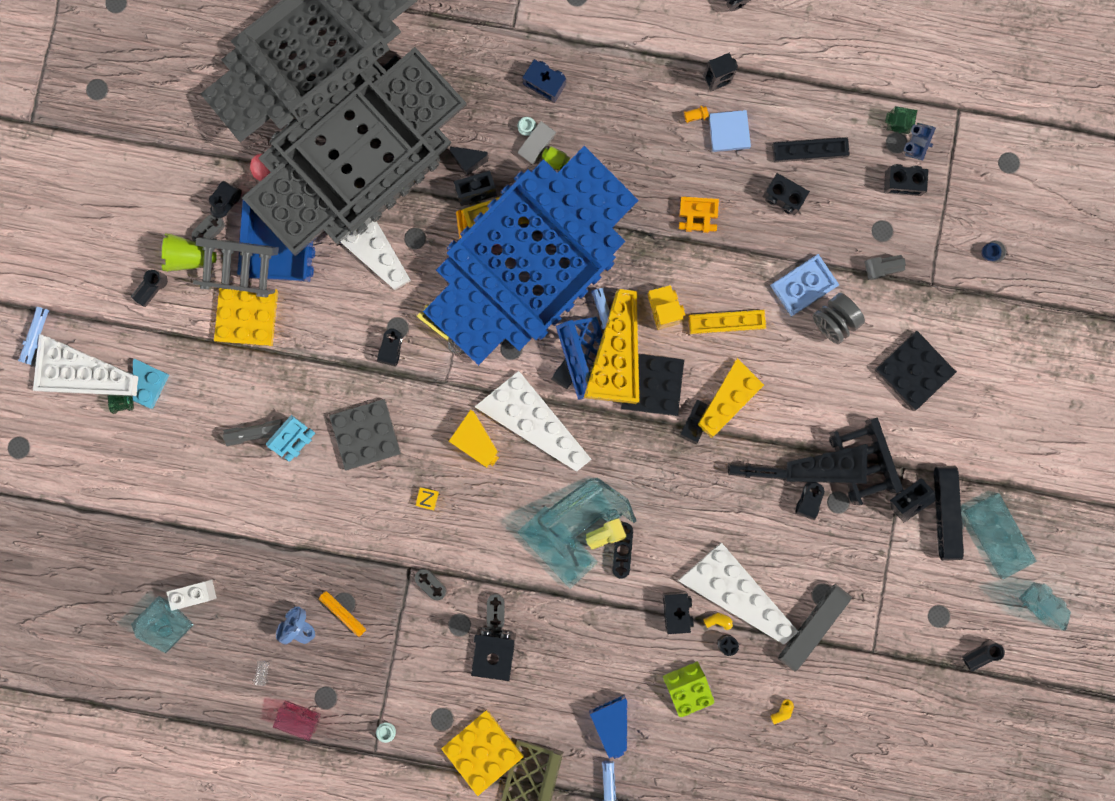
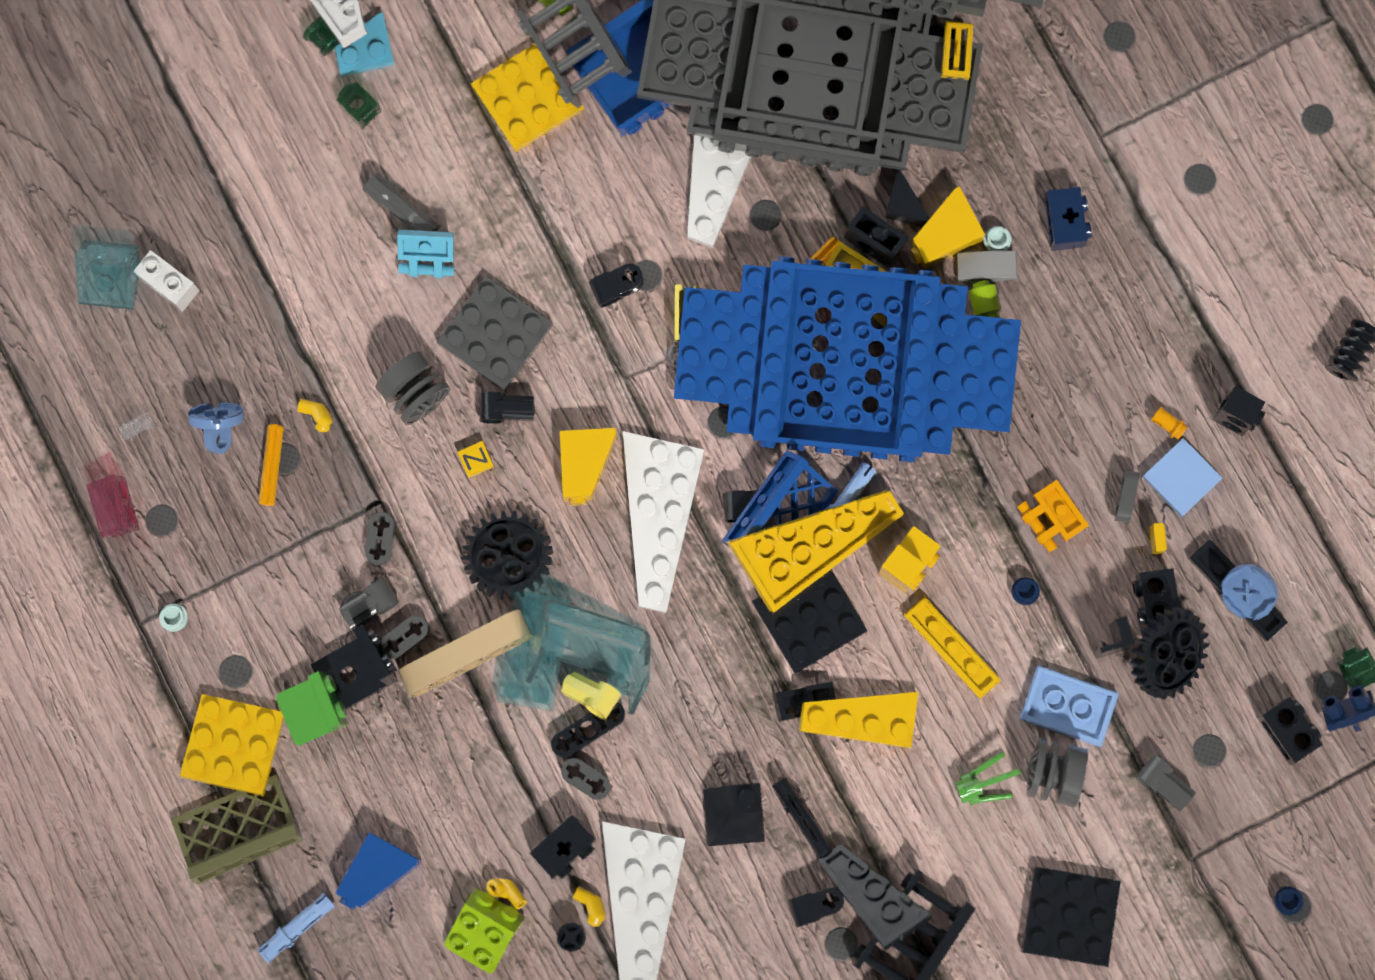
camera: 60 degrees right, 5 degrees down
(184, 412) = (366, 113): none -> clear green brick
(333, 565) = (318, 411): none -> yellow arm
(364, 503) = (410, 384): none -> dark grey wheel
(408, 464) = (497, 408): none -> black piece
(419, 73) = (955, 73): none -> yellow tile
(462, 615) = (375, 600): none -> dark grey piece
(497, 694) = (312, 708): none -> bright green bracket
(501, 537) = (496, 576): none -> black gear
(502, 148) = (947, 232): none -> yellow slope
(531, 586) = (465, 653): none -> tan beam
(650, 576) = (590, 773): none -> dark grey beam
(675, 660) = (506, 889): none -> yellow arm
(718, 167) = (1126, 496): none -> dark grey beam
(727, 260) = (1025, 591): none -> dark blue plate
(728, 506) = (734, 814): none -> black slope
(753, 169) = (1158, 538): none -> yellow tile
(792, 228) = (1121, 637): none -> black panel
(811, 370) = (971, 788): none -> bright green plant
(820, 142) = (1249, 591): none -> medium blue tile
(821, 209) = (1169, 653): none -> black gear

